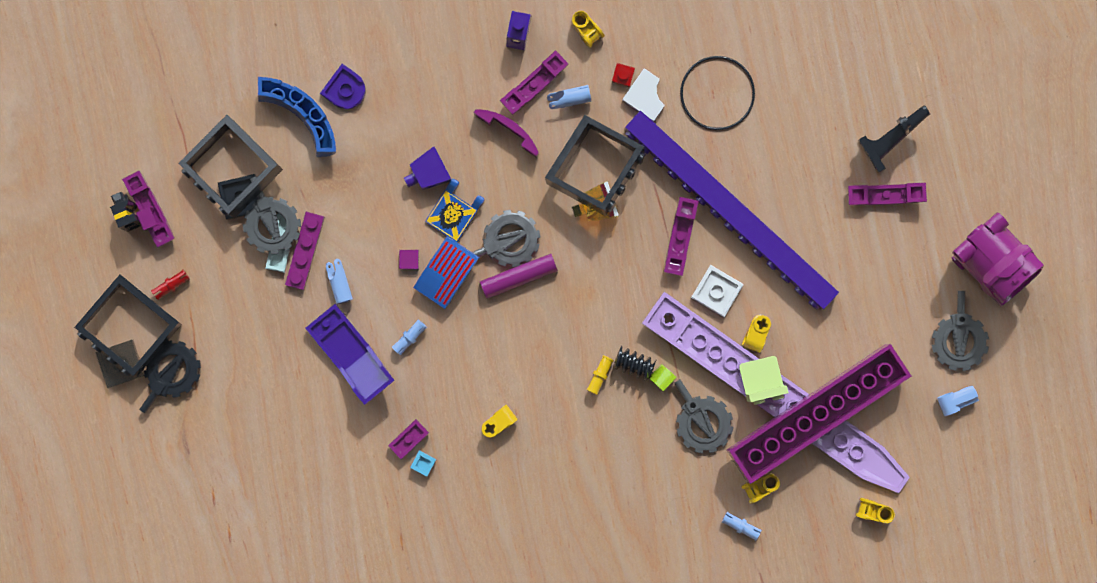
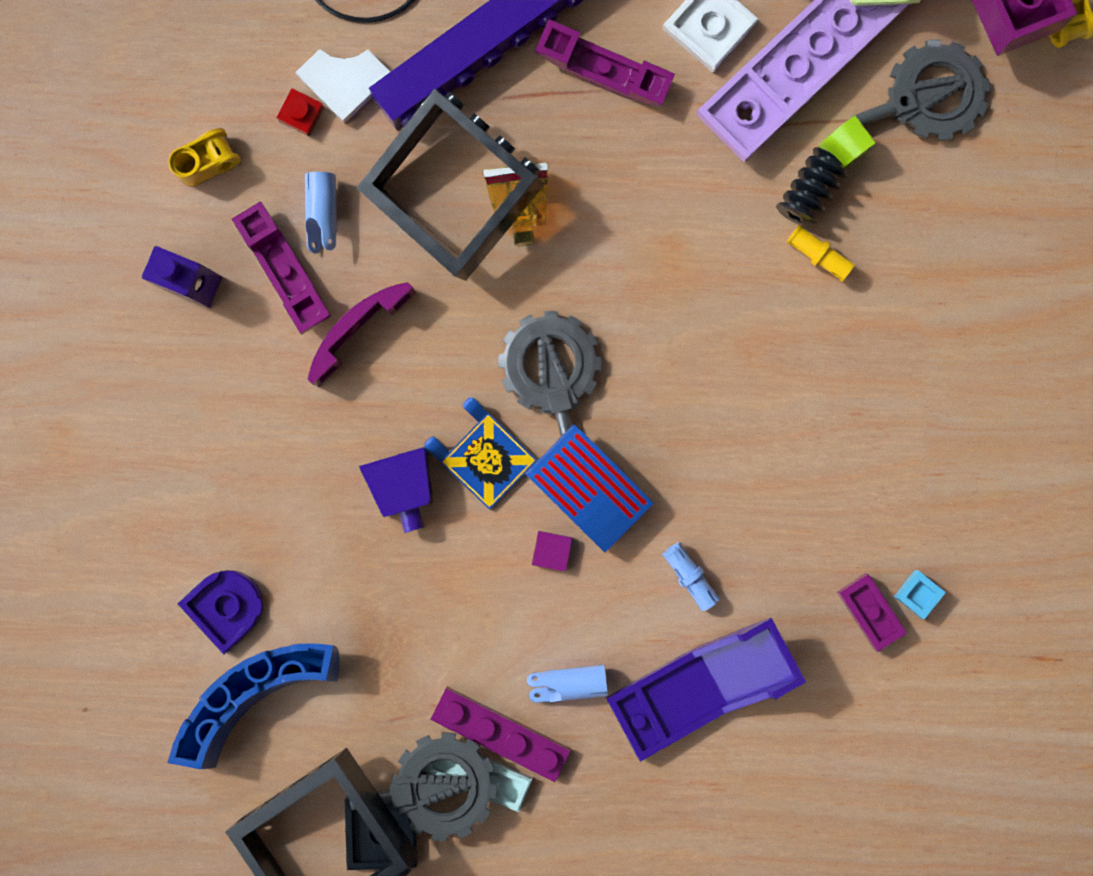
camera: 80 degrees left, 0 degrees up
(501, 419) = (869, 443): yellow piece -> none
(518, 276) = (618, 361): magenta brick -> none

